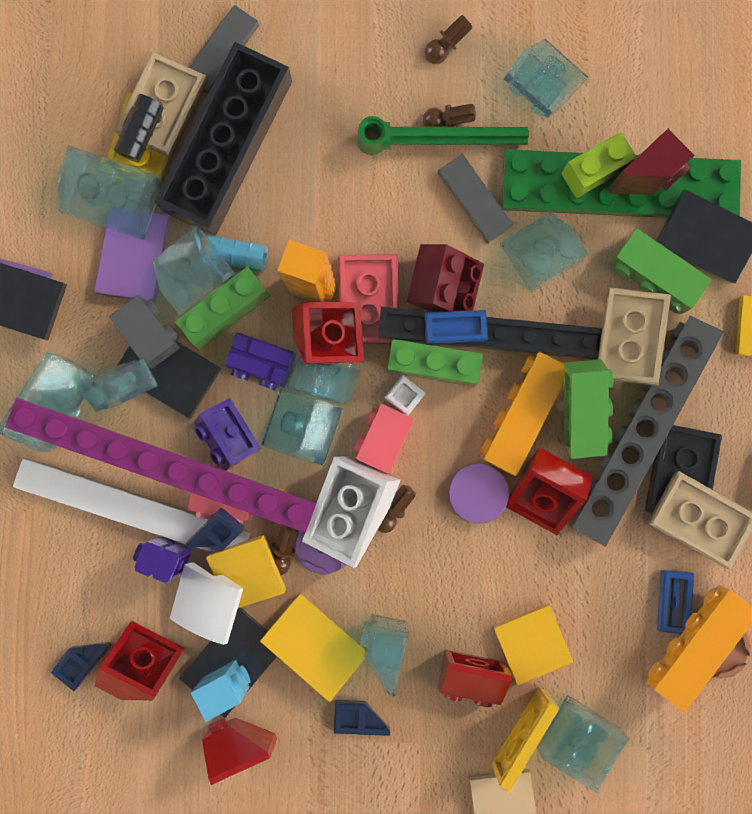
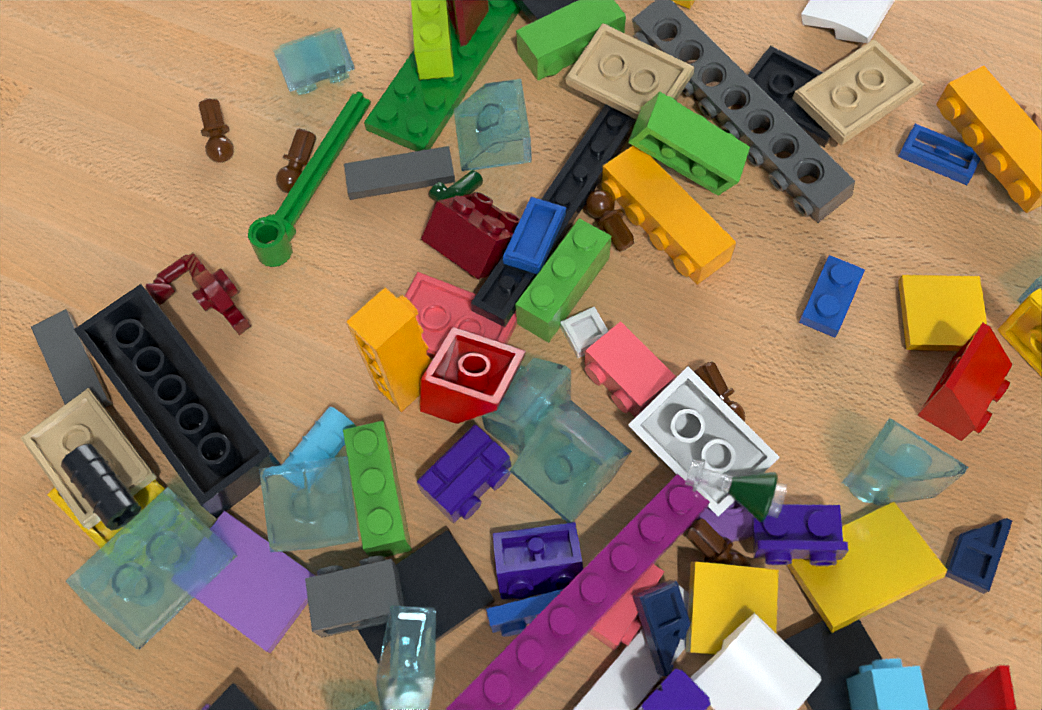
camera: 65 degrees left, 20 degrees down
(182, 437) = (514, 616): none -> blue plate
(313, 597) = (800, 533): none -> dark purple bracket
(316, 115) = (212, 289): none -> dark red animal
(320, 561) = (756, 493): none -> piece
(477, 251) = (463, 186): none -> dark green arm
(478, 493) = (737, 299): medium lavender tile -> none
(511, 363) = (601, 206): none -> reddish brown axle
(512, 560) = (832, 296): none -> blue plate
(549, 491) = (768, 222): red slope -> none

